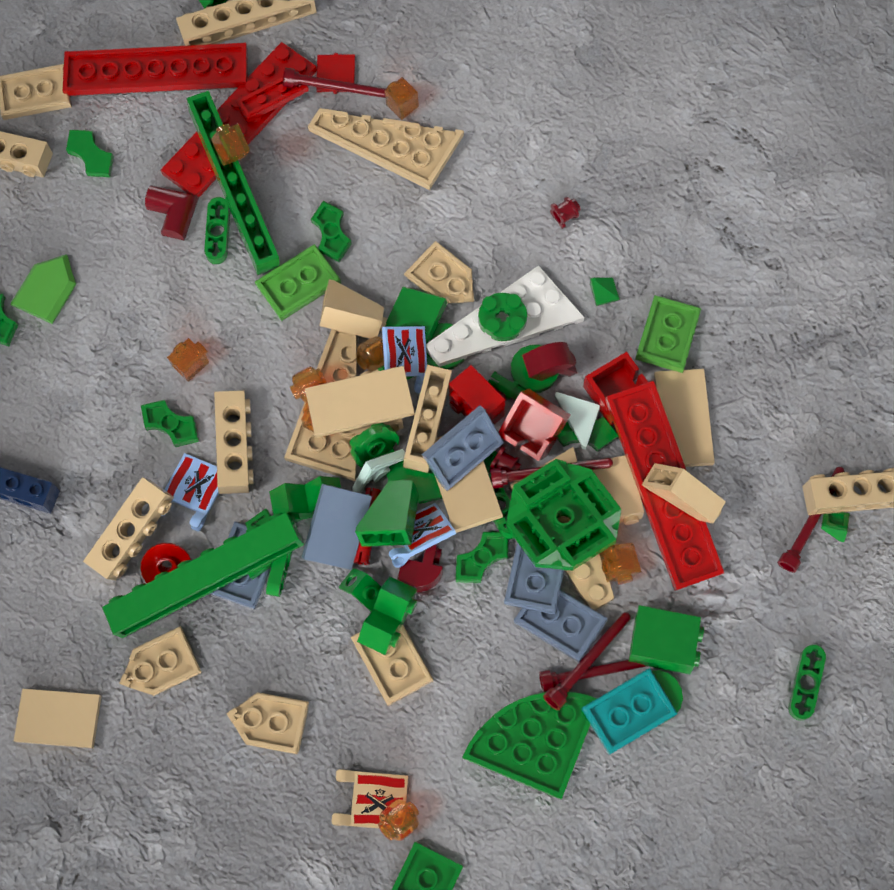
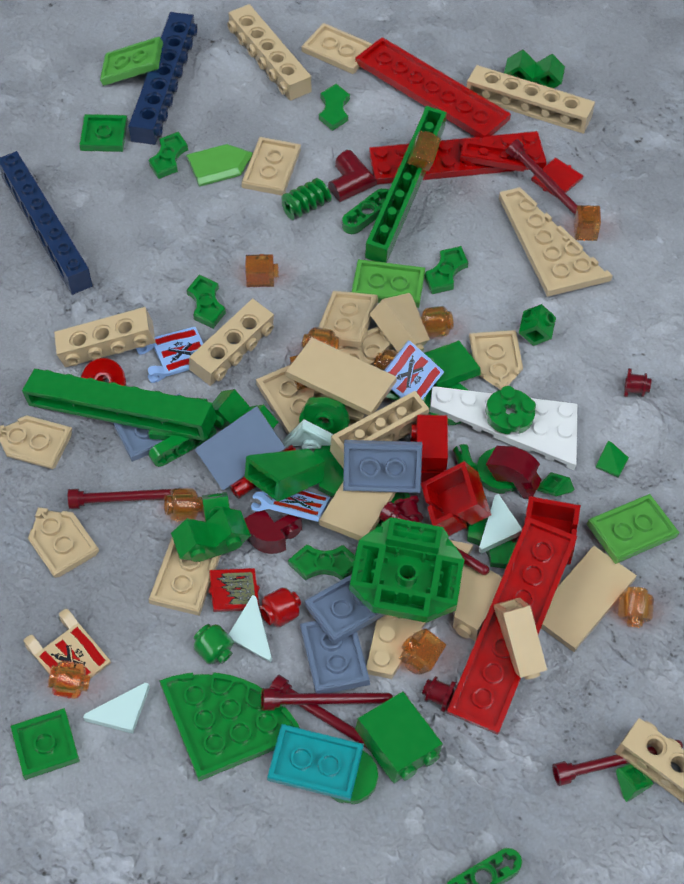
camera: 40 degrees right, 15 degrees down
(94, 254) = (271, 166): none -> tan tile
(157, 261) = (305, 196): none -> green piece
(250, 676) = (79, 498): none -> dark red piece
(300, 340) = (349, 316): none -> tan tile
(335, 609) = (182, 504): none -> clear orange head
(372, 284) = (437, 321): none -> clear orange head
(440, 639) = (232, 588): none -> piece
(450, 223) = (537, 325): none -> green brick
(456, 804) = (121, 712): none -> light aqua tile
(471, 694) = (213, 644): none -> green head
(485, 659) = (250, 631): none -> light aqua tile
(489, 621) = (280, 607): none -> red head
(584, 346) = (556, 485): none -> green slope
(658, 581) = (438, 692): none -> dark red brick
(726, 394) = (636, 606): none -> clear orange head

